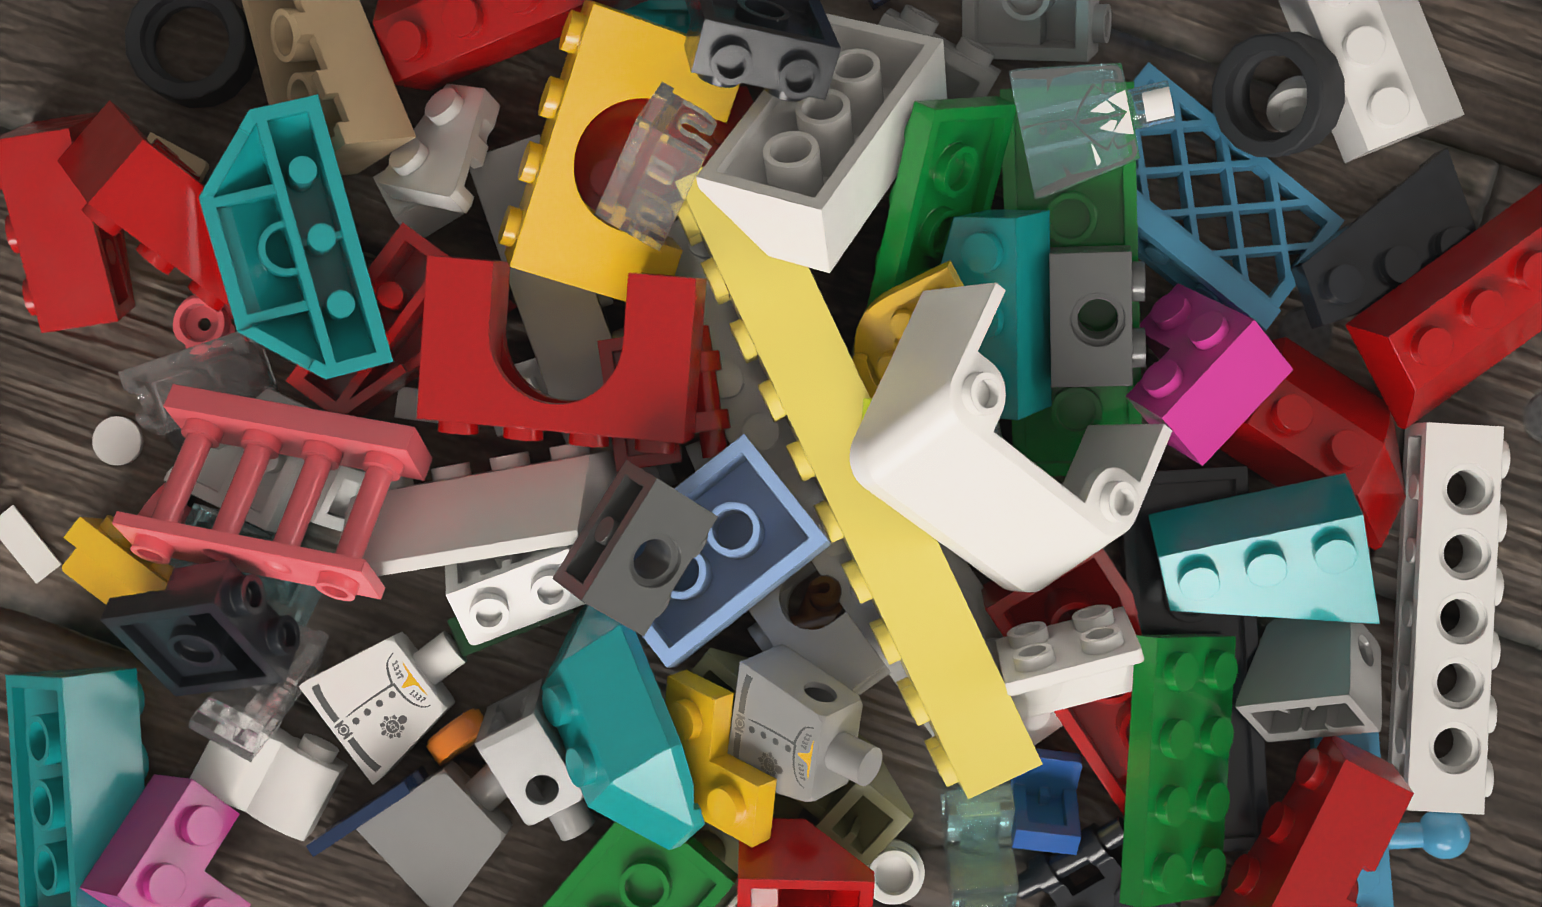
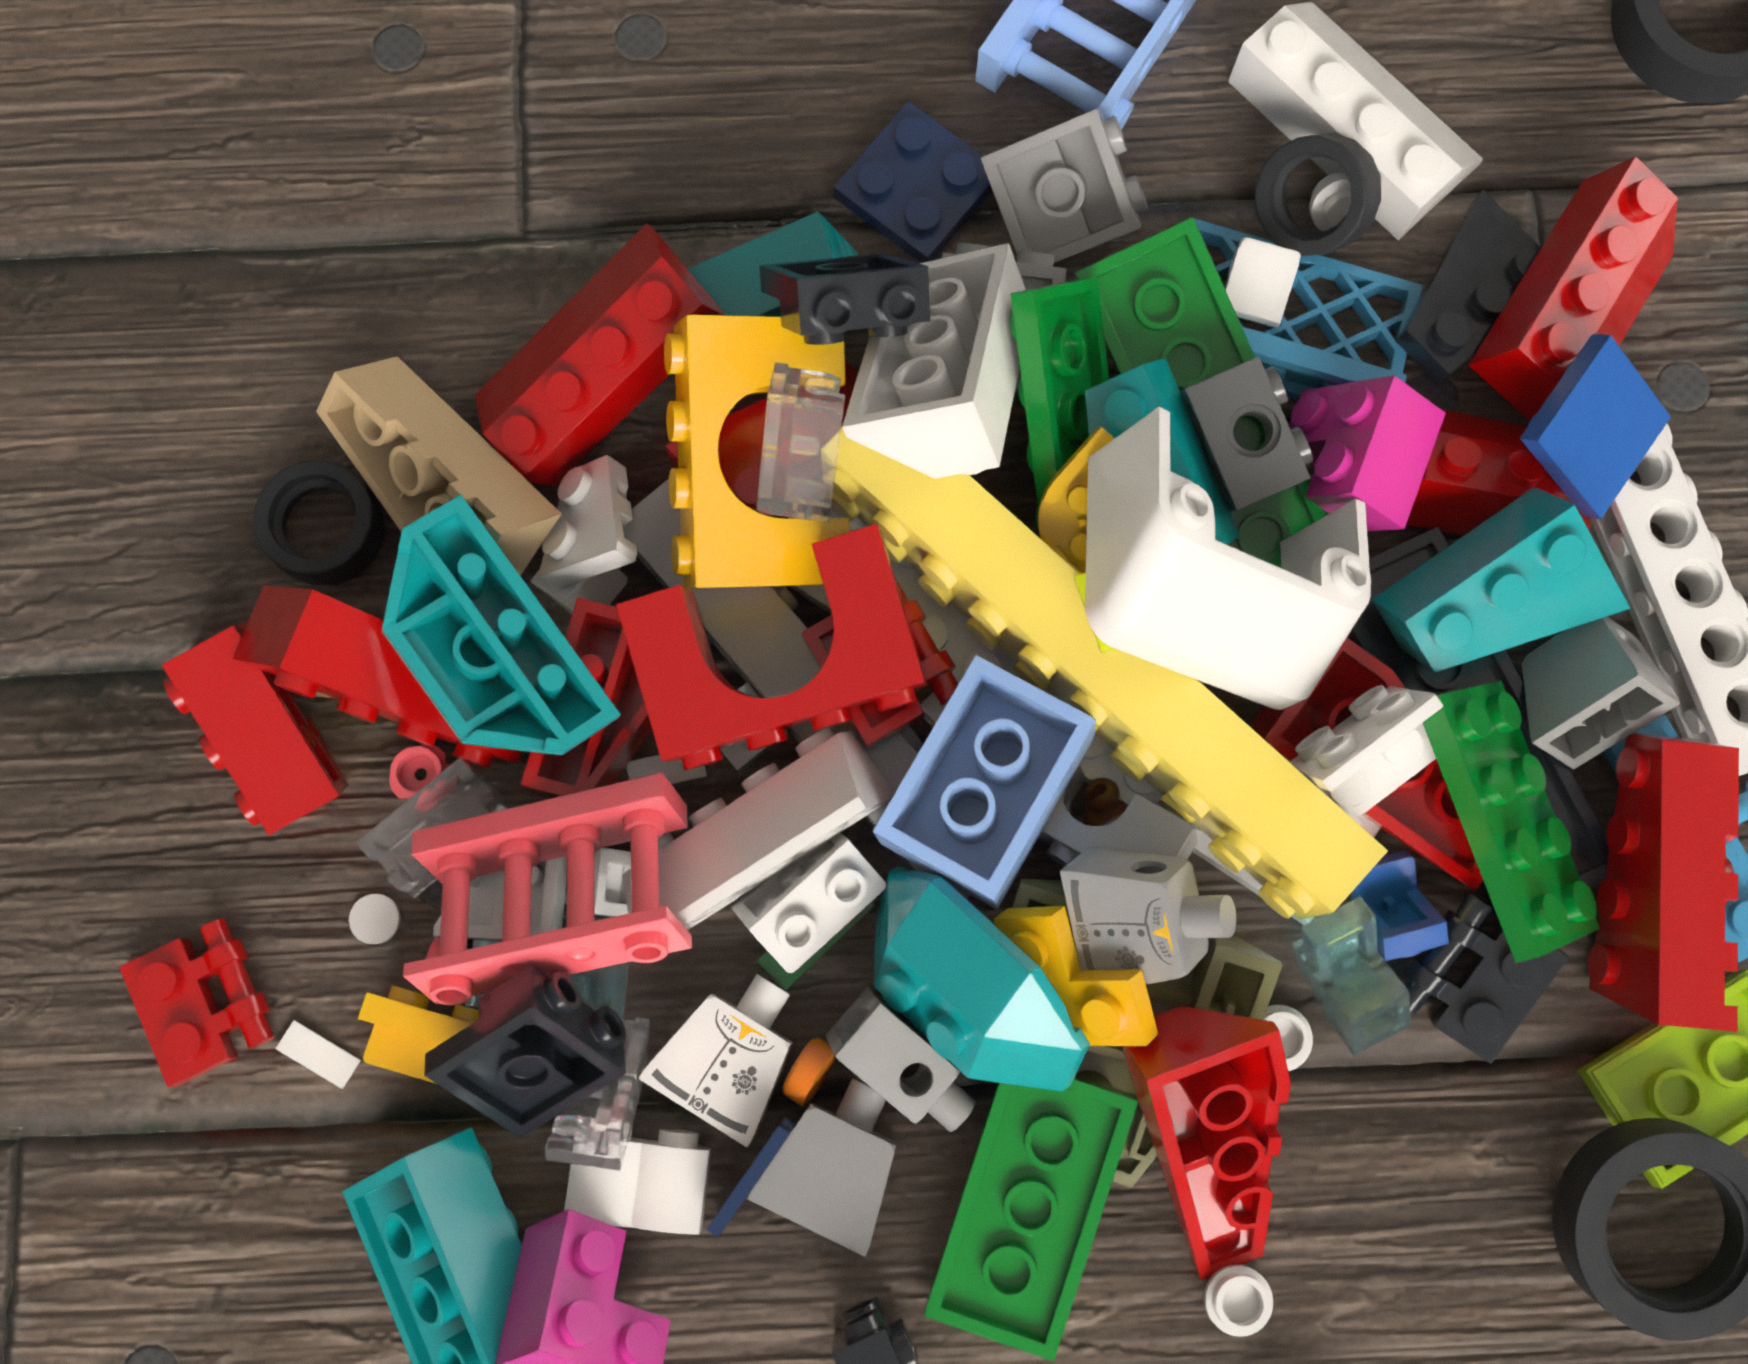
camera: 25 degrees left, 10 degrees down
(602, 561) = (907, 755): dark grey brick -> none
(1082, 121) = (1162, 262): clear light blue torso -> none
(1182, 161) = (1261, 280): none -> white slope
(1429, 439) = (1596, 426): none -> blue tile

